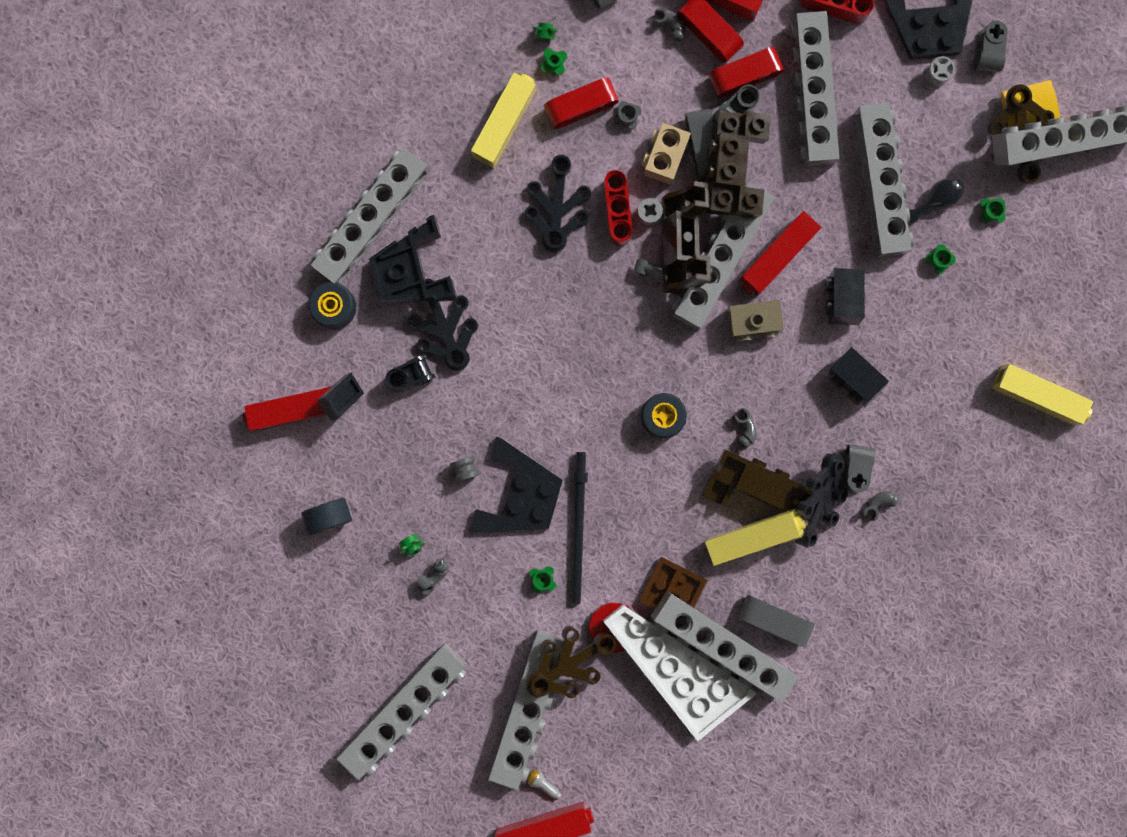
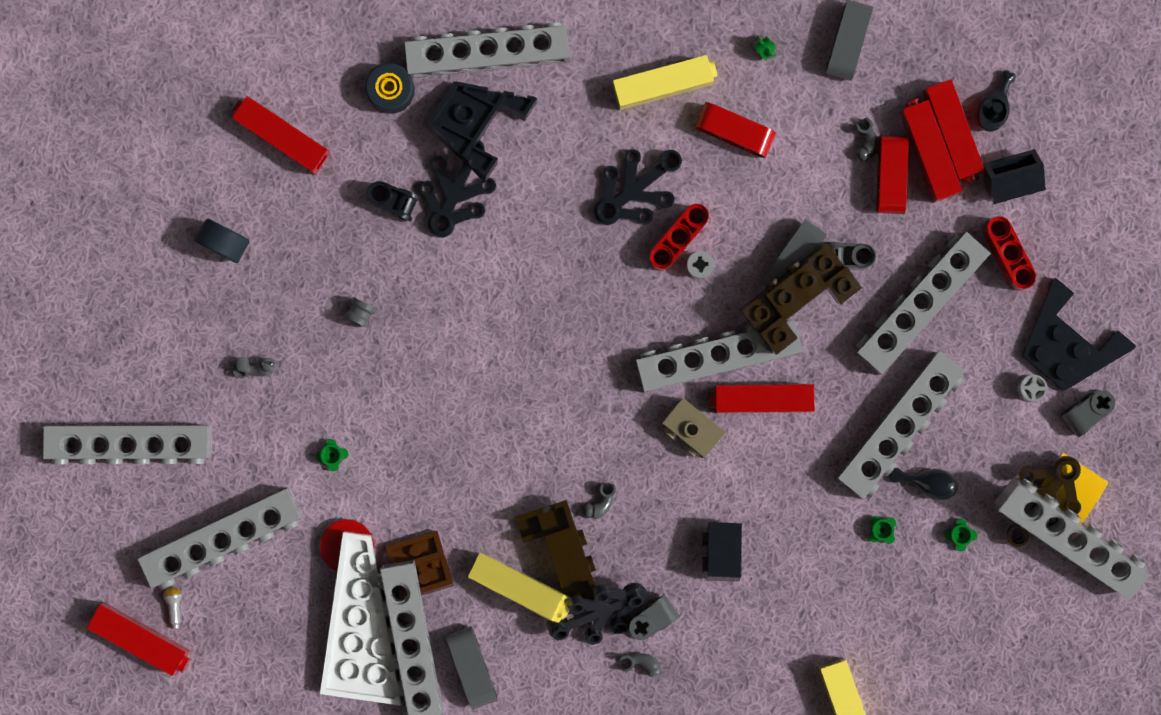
camera: 45 degrees right, 0 degrees up
(340, 396) = (325, 163): black tile -> none
(411, 545) = (261, 327): green plate -> none
(529, 498) = (386, 384): black wing -> none
(558, 67) = (748, 84): green plate -> none
(567, 665) = (282, 535): dark brown plant -> none
(580, 476) = (438, 409): black bar -> none
(630, 108) = (764, 167): dark grey plate -> none
(644, 268) = (660, 319): dark grey arm -> none
(669, 410) = (549, 427): black wheel -> none
(670, 155) = (761, 240): tan brick -> none
(680, 239) = (682, 327): dark brown bracket -> none
(746, 71) = (884, 236): red beam -> none
(846, 296) = (778, 482): black brick -> none

